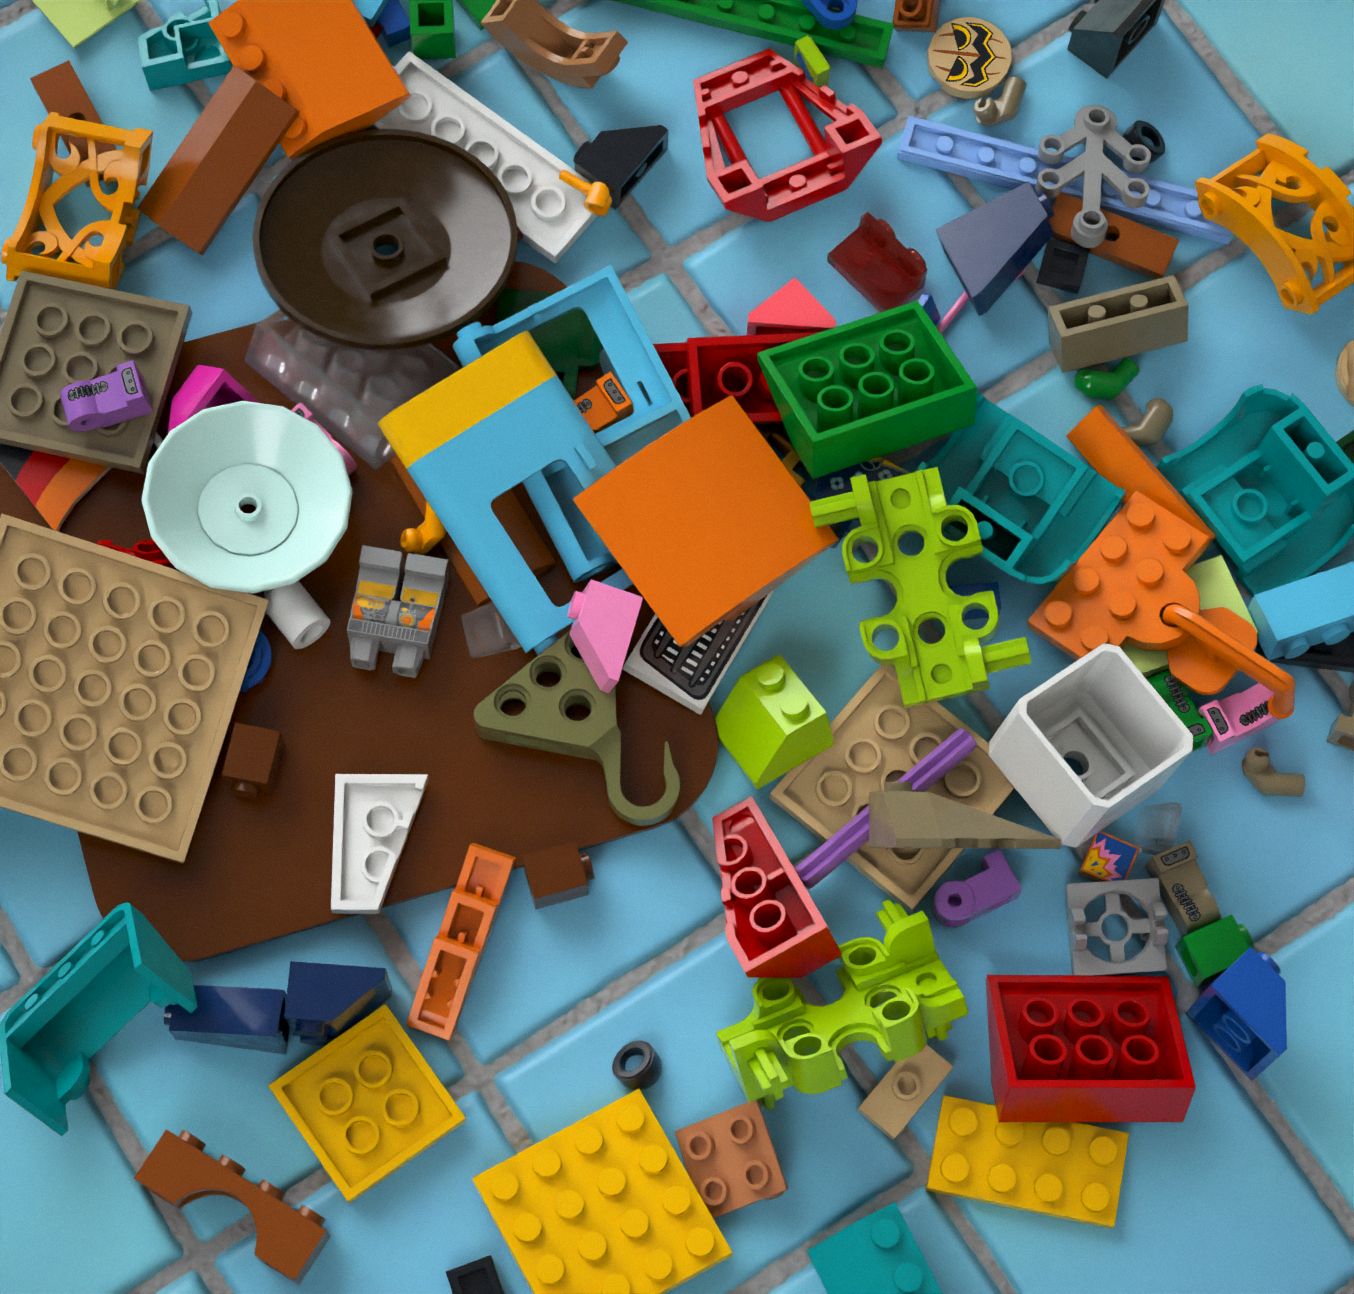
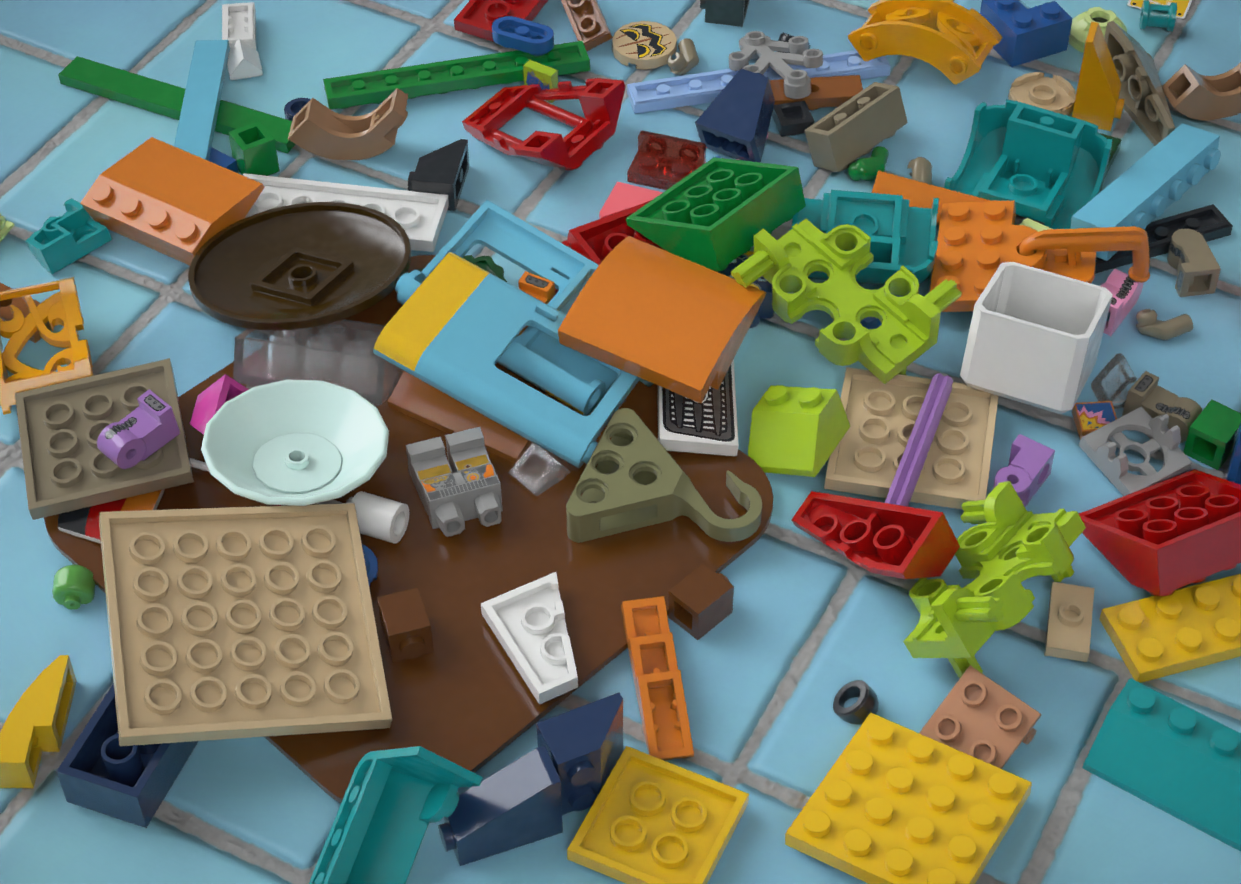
camera: 25 degrees left, 25 degrees down
(218, 160) = (136, 276): dark orange slope -> none
(425, 536) = (451, 417): light orange arm -> none
(598, 194) = (440, 193): light orange hand -> none
(603, 629) = (635, 409): bright pink slope -> none
(930, 821) = (968, 428): dark tan wedge -> none

